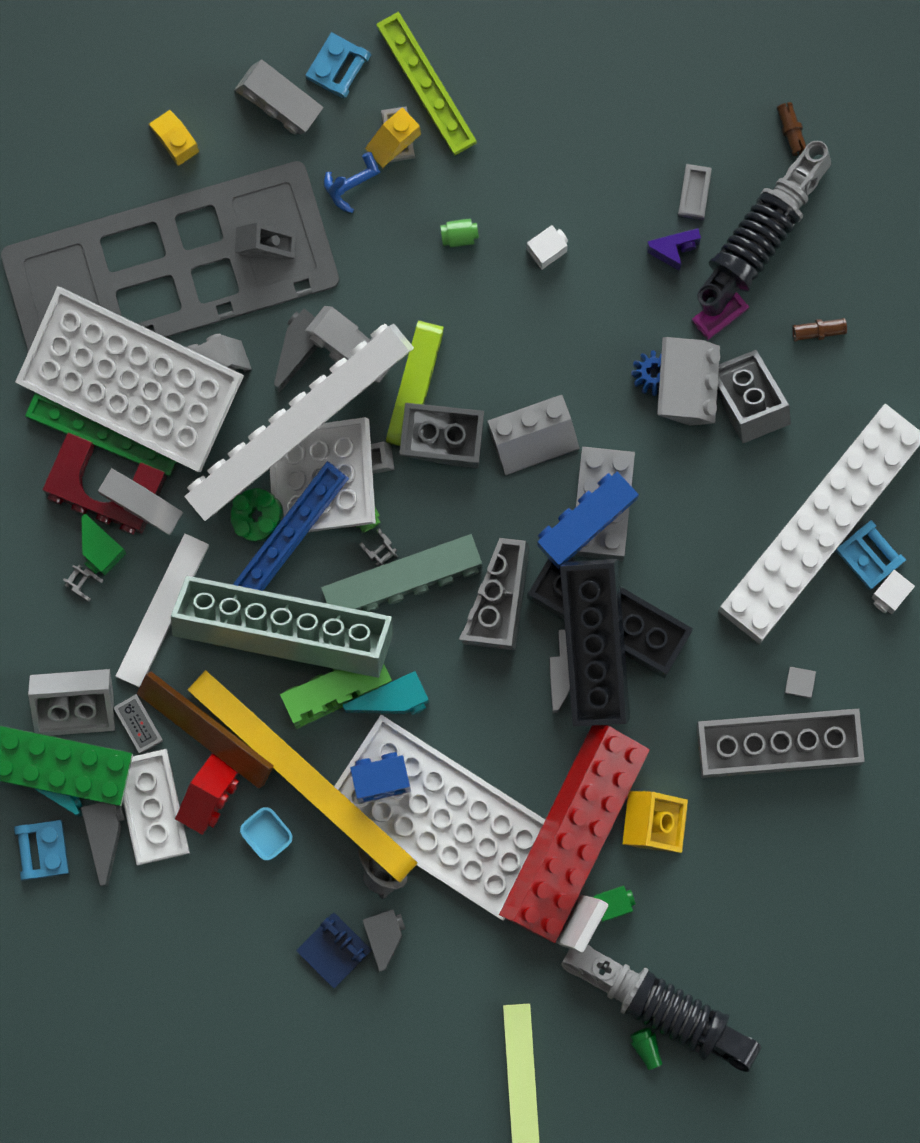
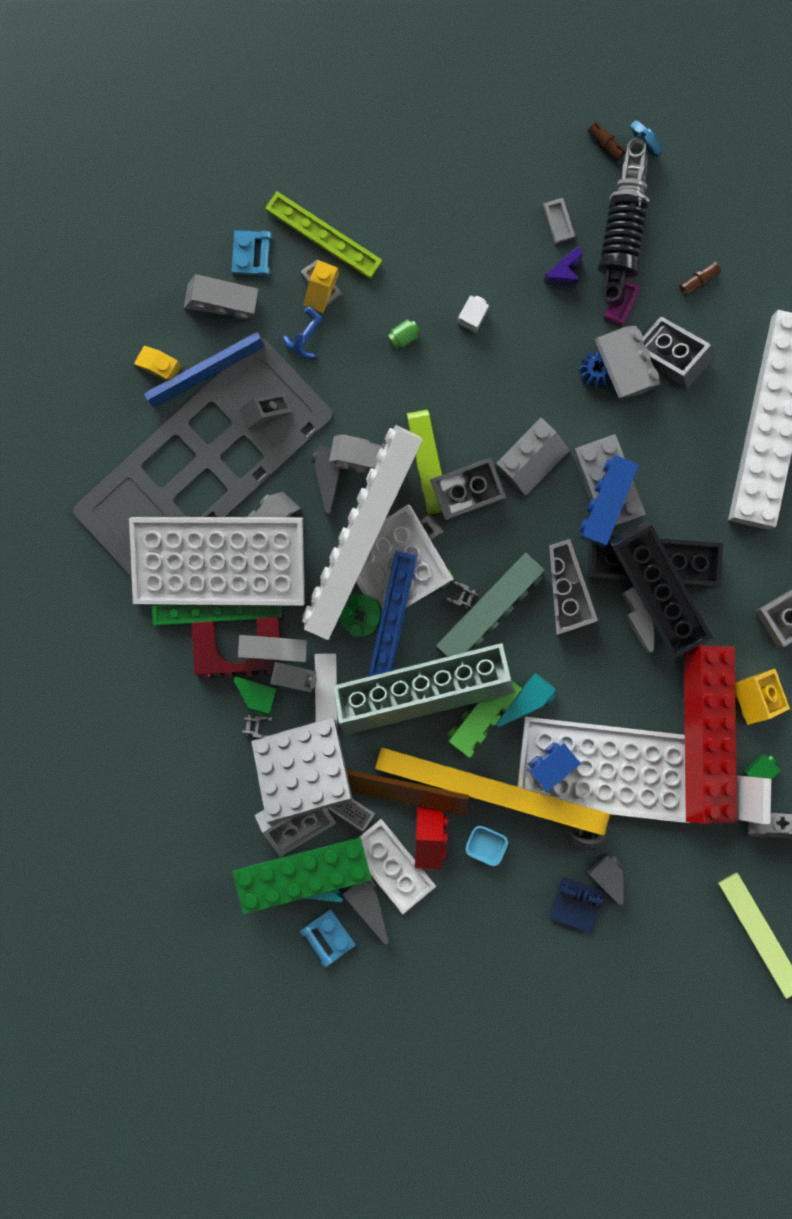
camera: 30 degrees left, 5 degrees up
(105, 650) = (301, 771): none -> plate
(147, 545) = (293, 677): none -> dark grey slope
(221, 167) = (204, 369): none -> blue tile
(835, 147) = (648, 136): none -> dark azure plate

